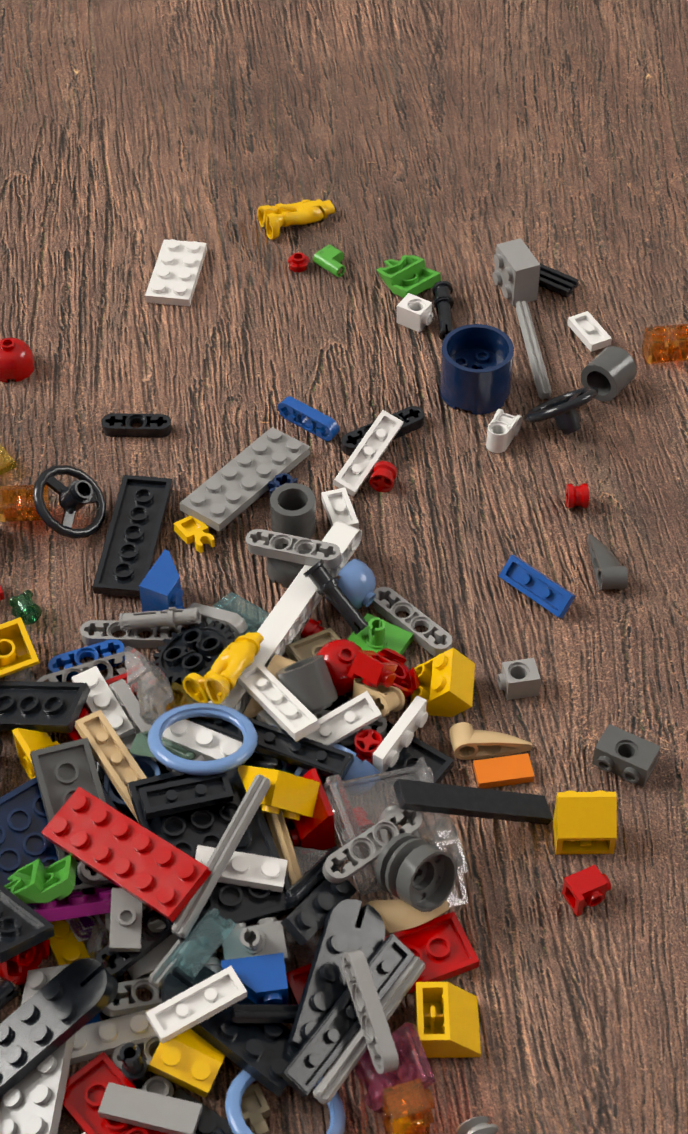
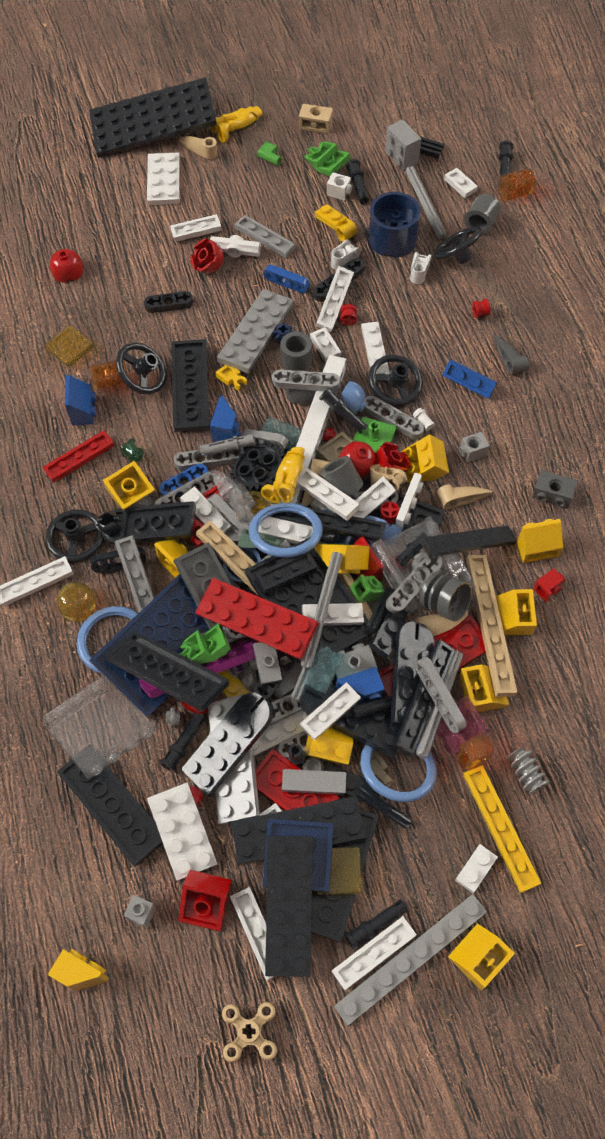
camera: 10 degrees left, 15 degrees up
(182, 195) = (152, 117): none -> black plate
(201, 338) = (195, 228): none -> white plate
(205, 374) = (207, 256): none -> red cylinder
(242, 241) = (206, 148): none -> tan piece
(248, 368) = (236, 246): none -> white piece
(295, 362) = (265, 236): none -> light grey tile
(298, 262) = (247, 158): red plate -> none
(308, 843) = (372, 586): none -> bright green brick
(373, 669) = (384, 460): red brick -> none
(378, 804) = (411, 550): none -> black pin
(398, 397) = (343, 254): none -> white piece
(405, 225) = (315, 118): none -> tan brick
(406, 362) = (341, 224): none -> yellow plate
(410, 532) = (374, 345): none -> white plate
(427, 569) = (395, 379): none -> black piece
(452, 625) = (422, 417): none -> white pin
(479, 934) = (491, 627): none -> tan plate
(503, 771) = (477, 512): orange tile -> none
(519, 920) = (517, 612): none -> yellow slope
(662, 305) = (505, 156): none -> black pin

